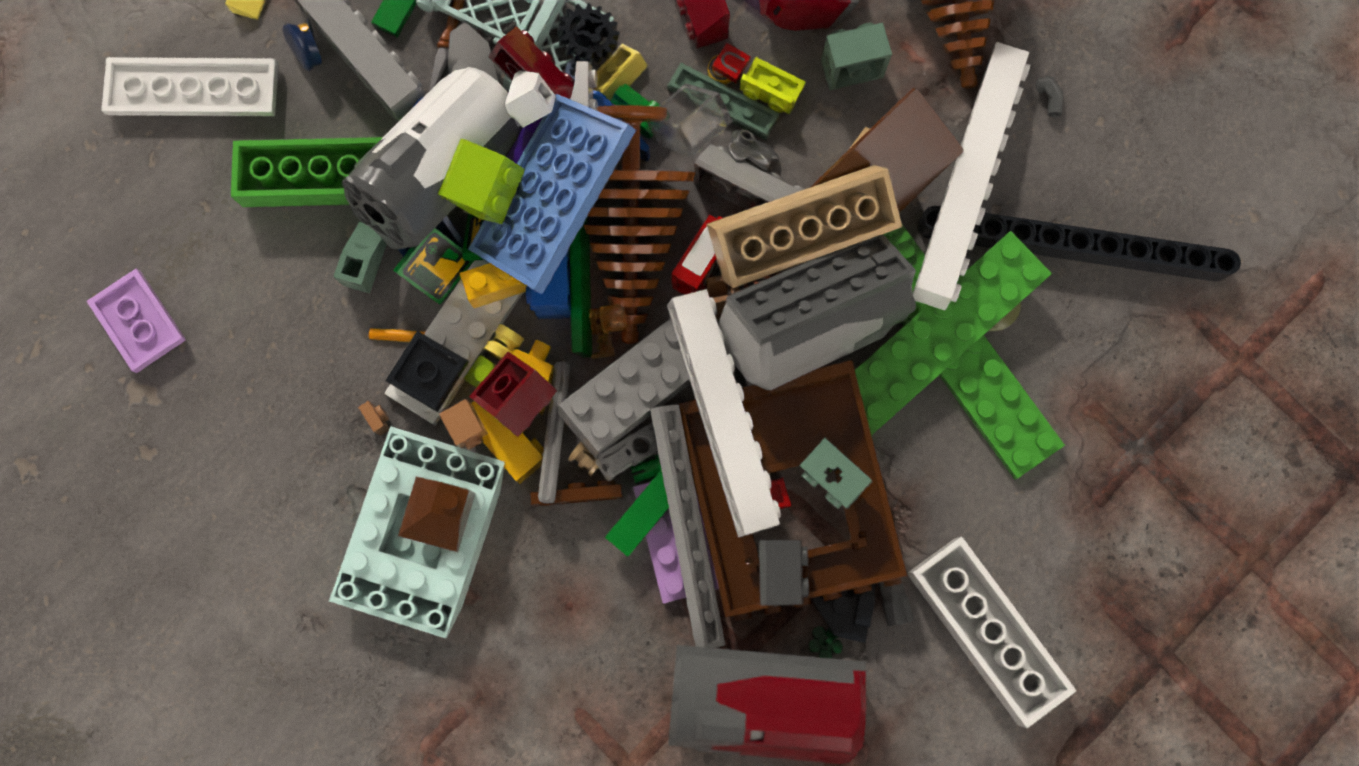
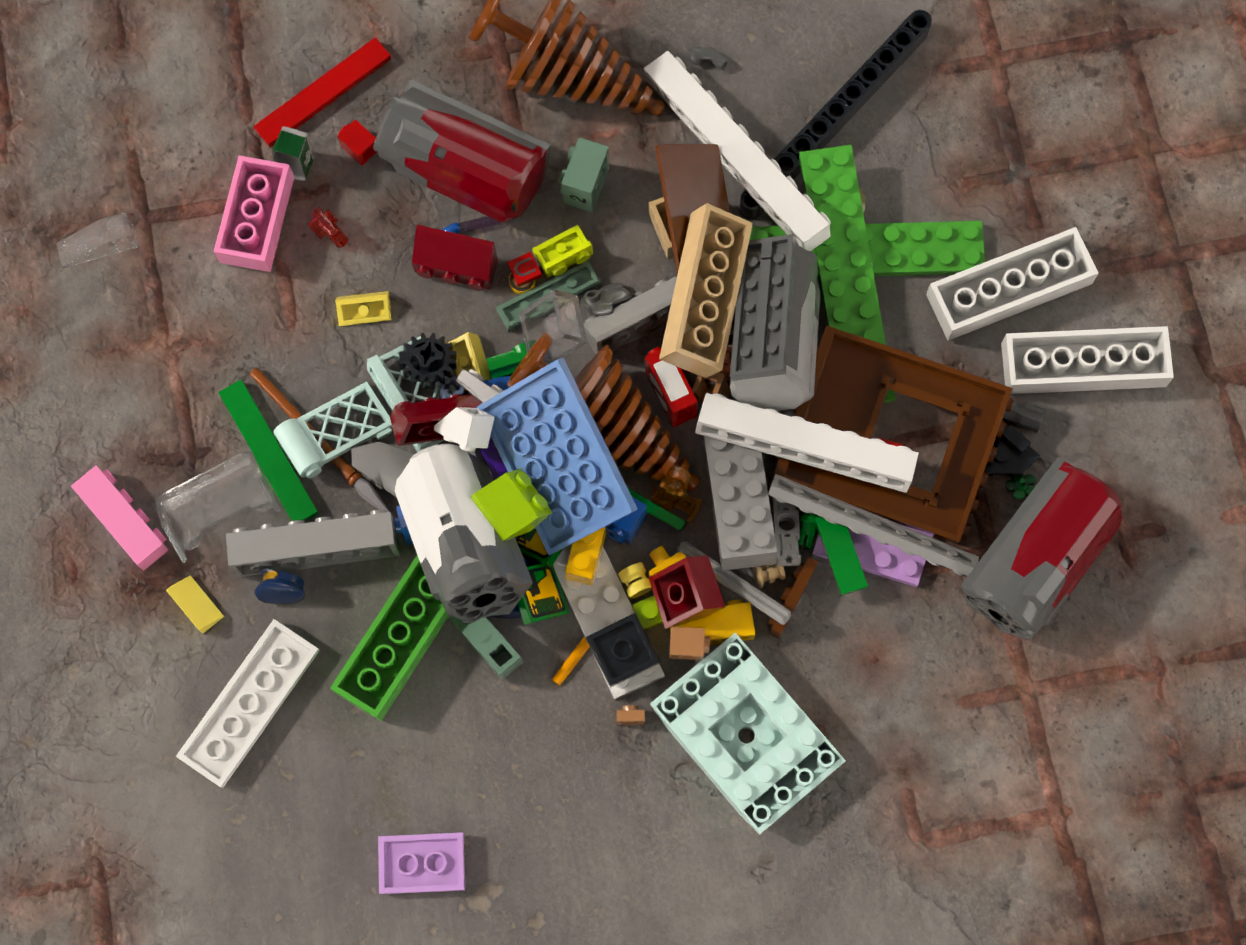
camera: 55 degrees left, 5 degrees down
(437, 513) = (746, 704): reddish brown slope -> none
(782, 572) = (955, 474): dark grey slope -> none
(828, 457) = (918, 379): sand green brick -> none
(1020, 512) = (1011, 283): none -> white brick

